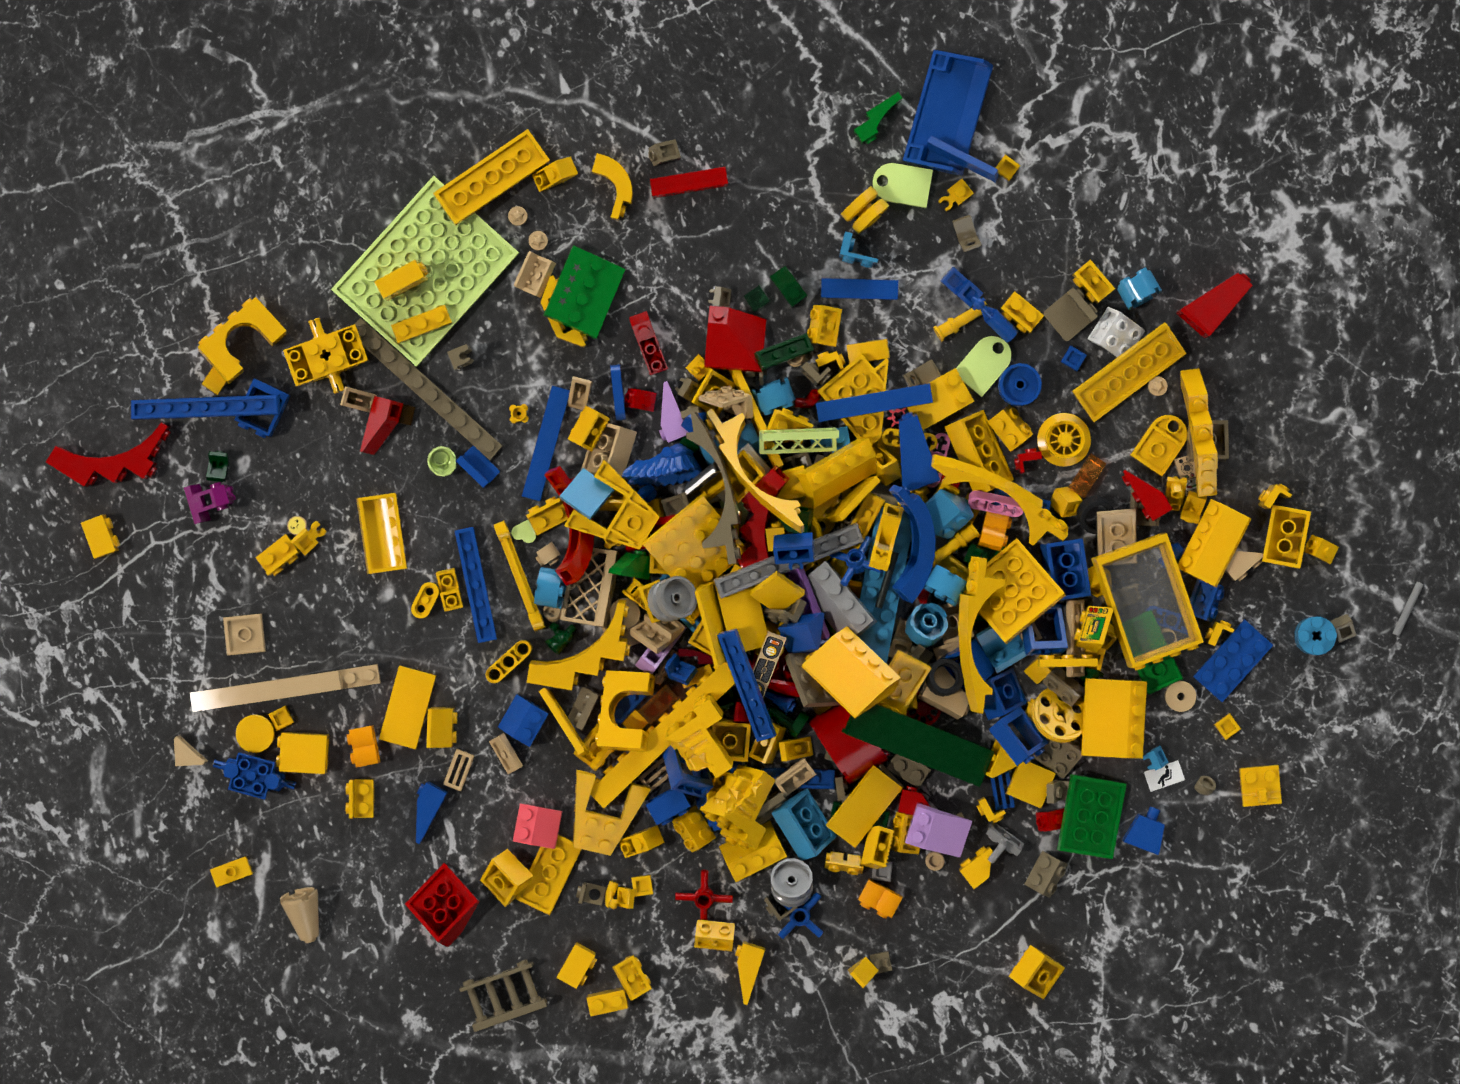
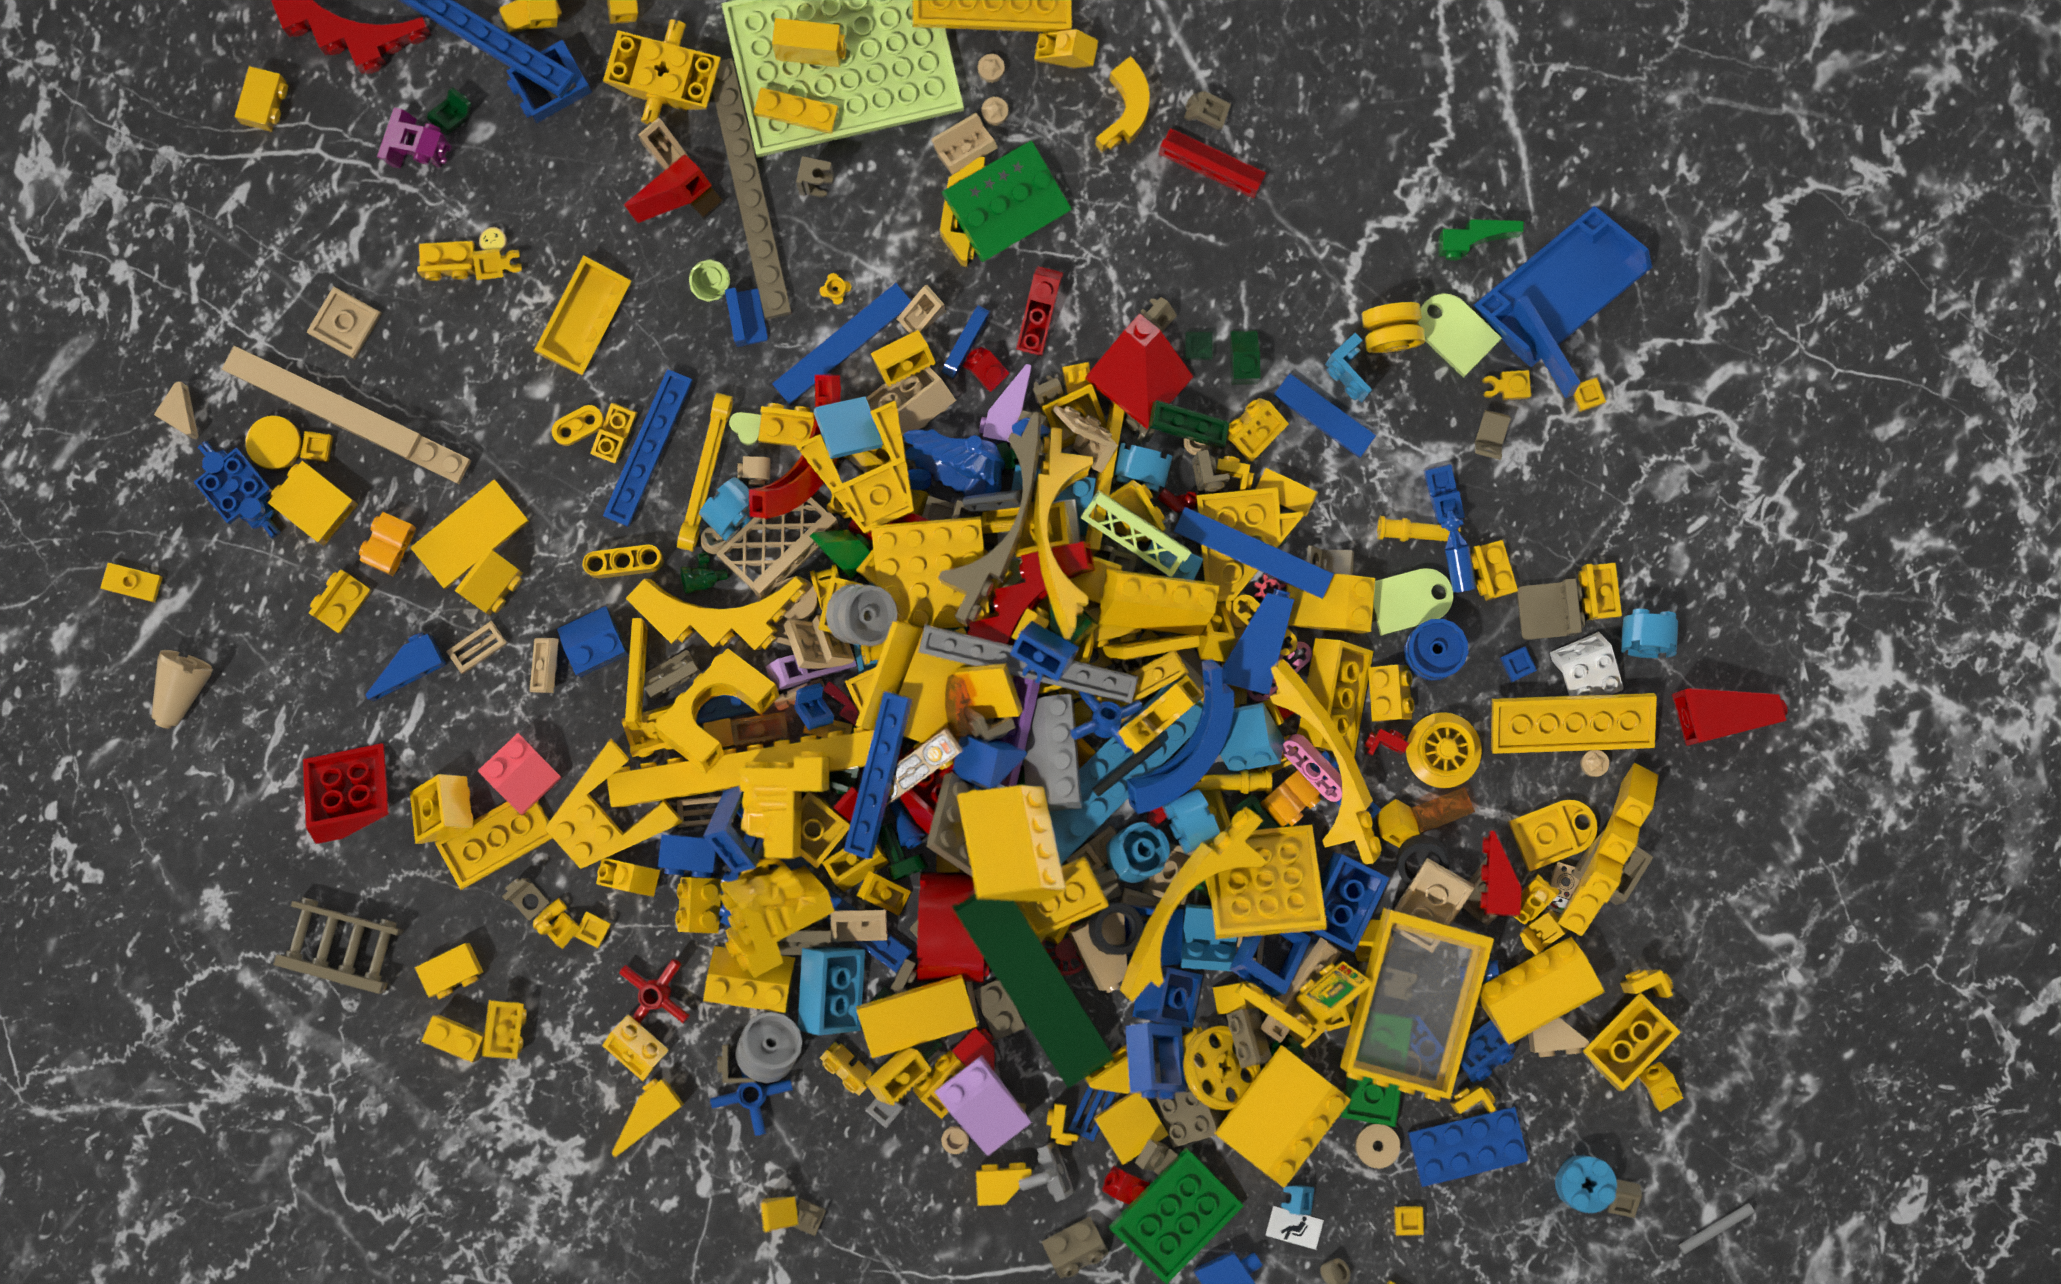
camera: 30 degrees right, 5 degrees down
(762, 610) = (955, 699): none -> clear orange slope
(879, 898) = (859, 1140): light orange brick -> none

